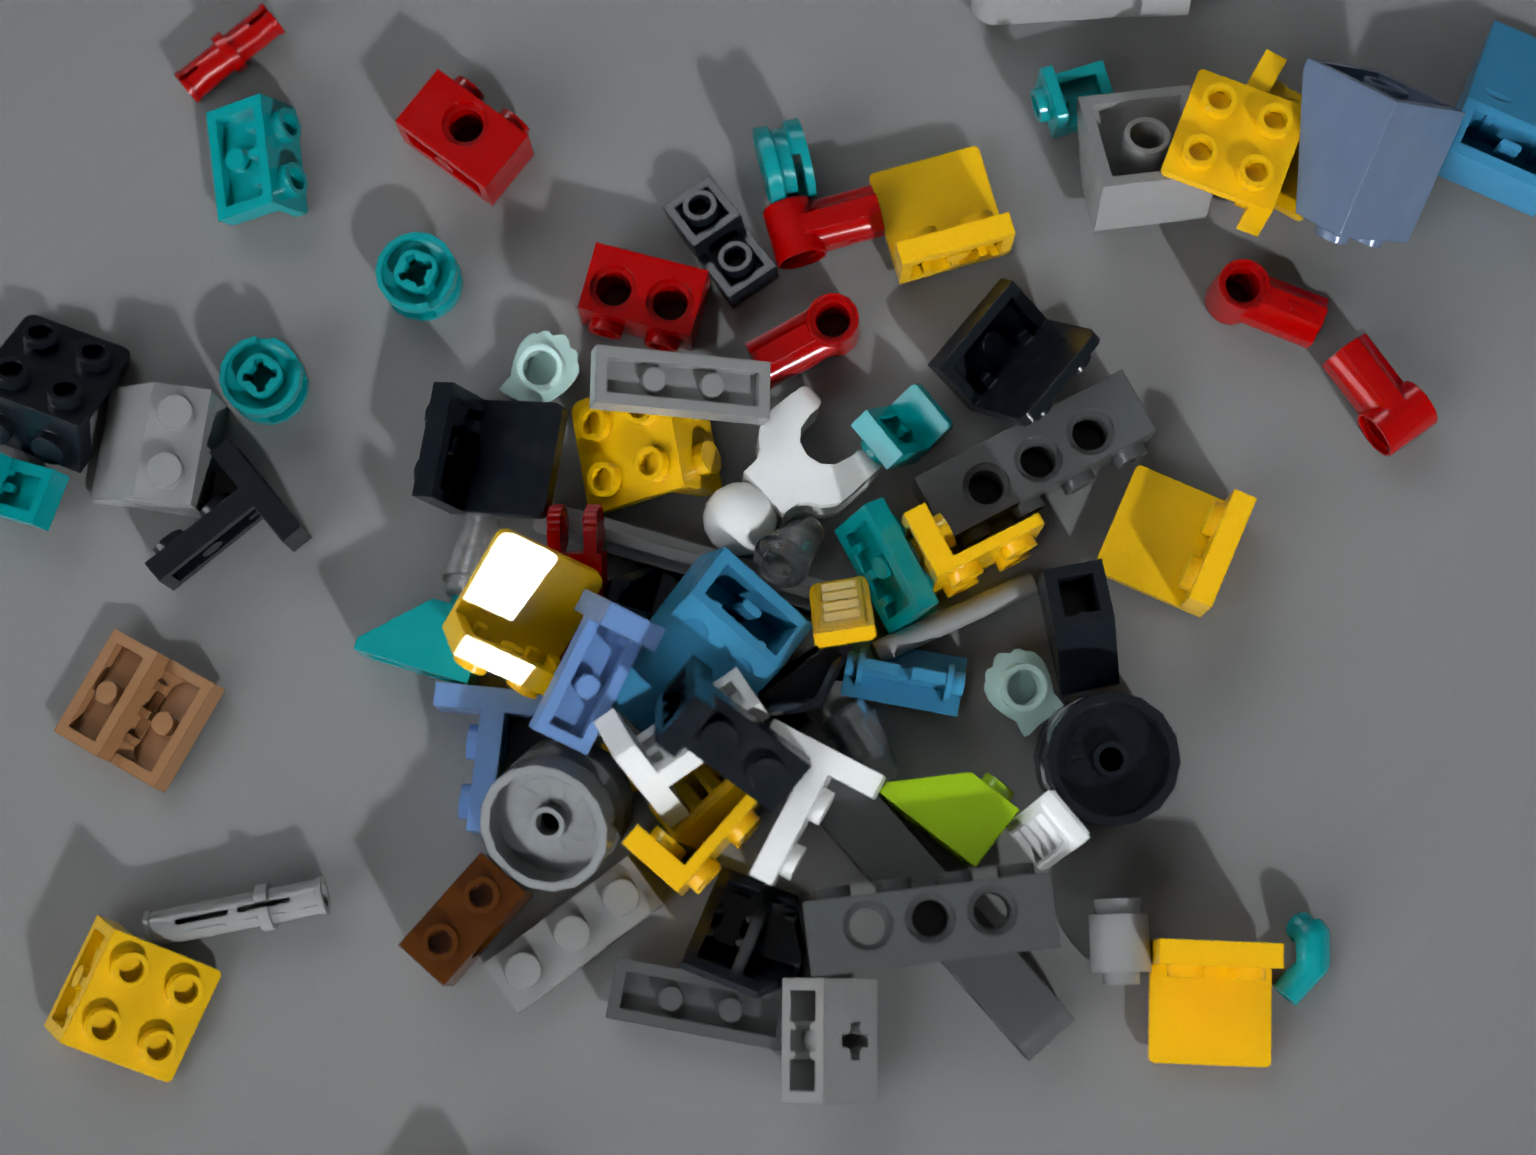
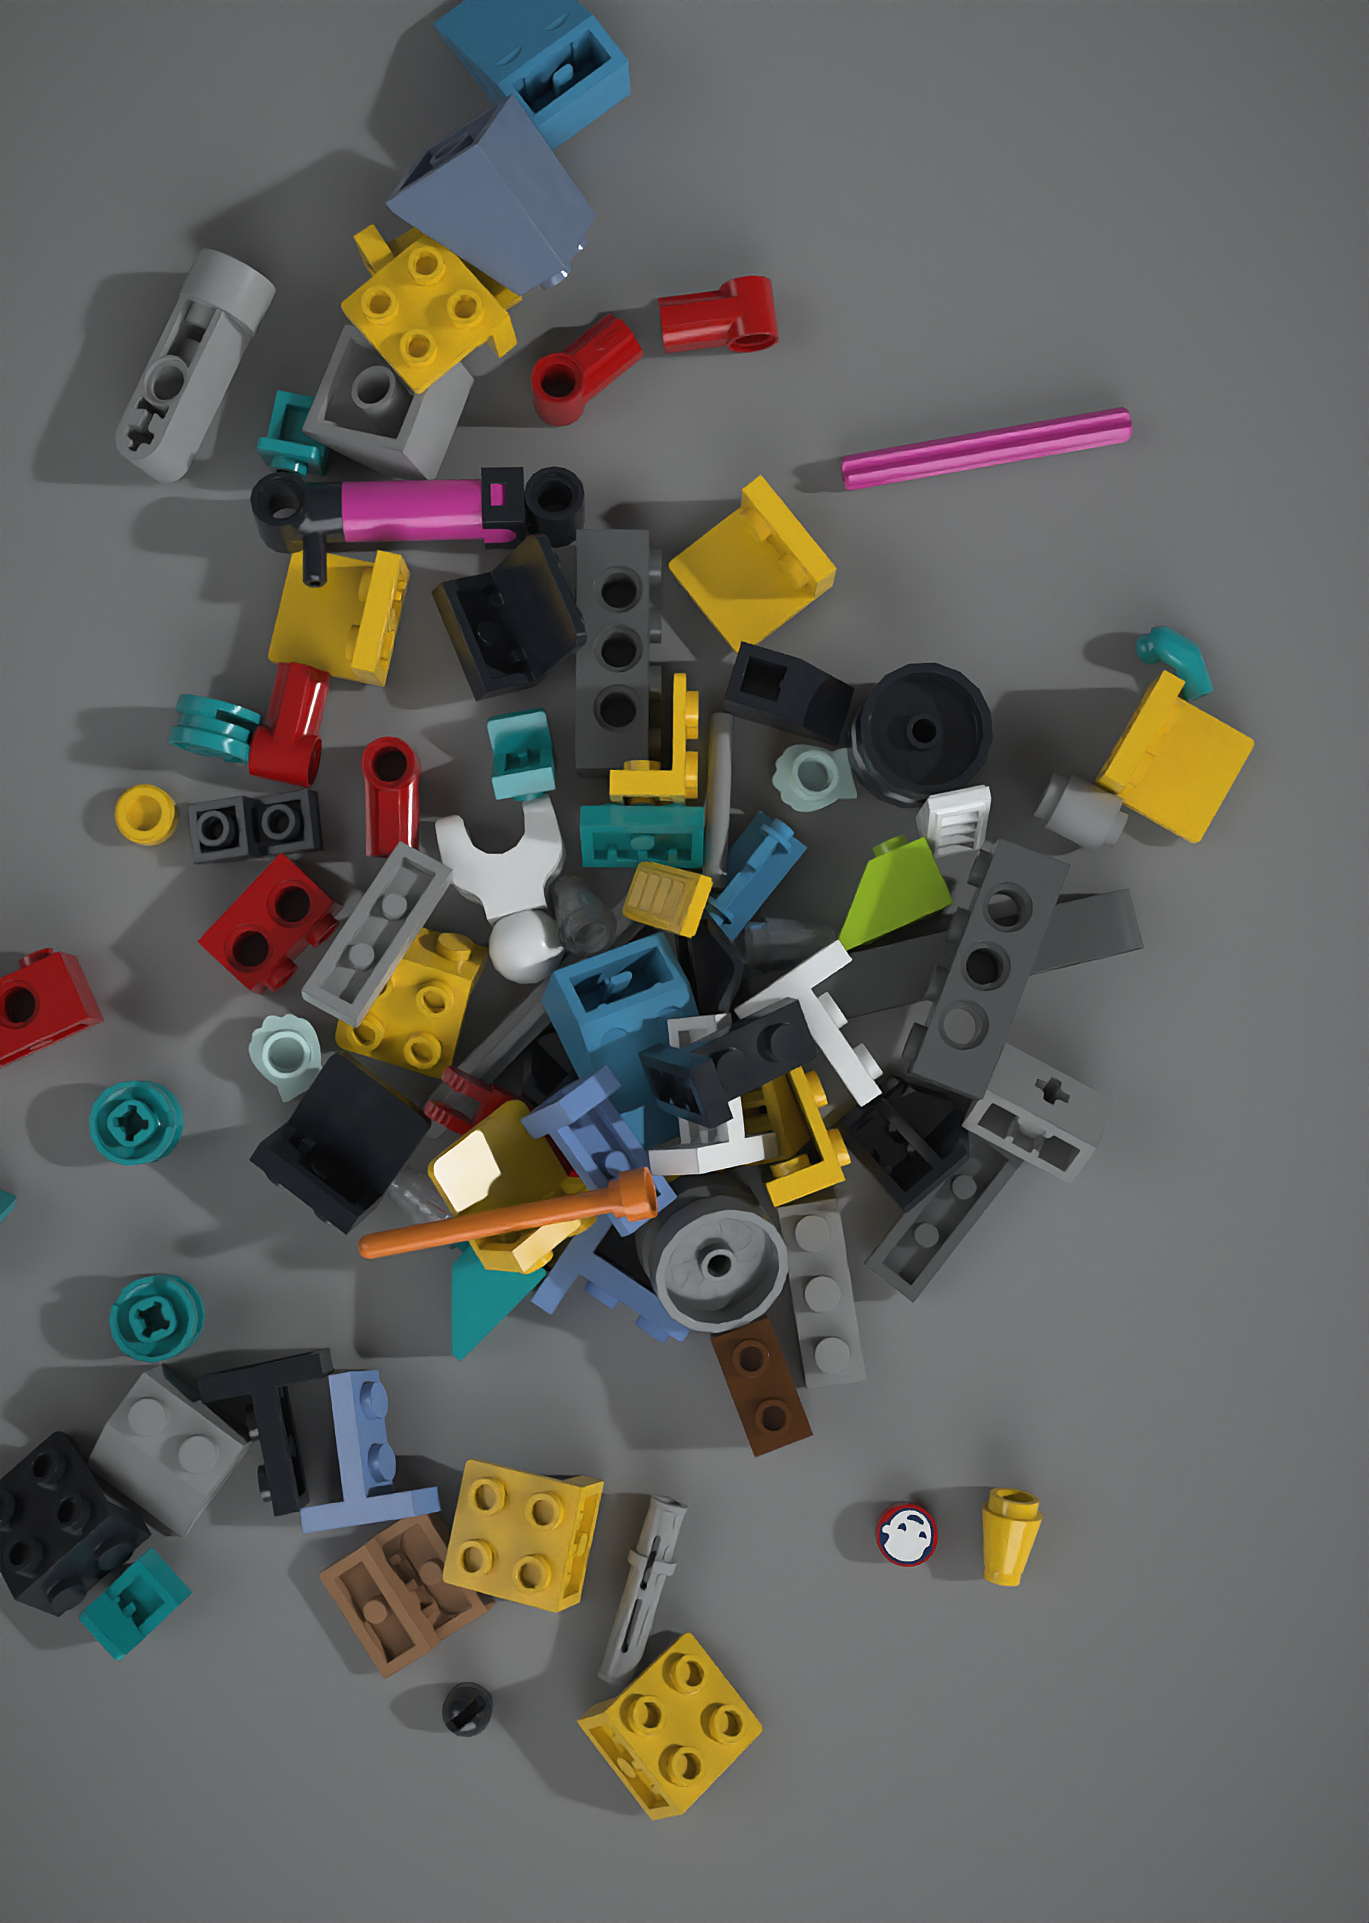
camera: 60 degrees left, 5 degrees up
(66, 803) = (461, 1697): none -> black hinge
(230, 614) = (365, 1461): none -> medium blue bracket
(233, 784) = (522, 1535): none -> yellow bracket
(400, 1120) = (906, 1534): none -> tile
(564, 710) = (628, 1196): none -> orange piece
(683, 147) = (146, 815): none -> yellow tile
(1100, 288) = (415, 510): none -> piece
(1399, 689) = (986, 448): none -> dark pink axle

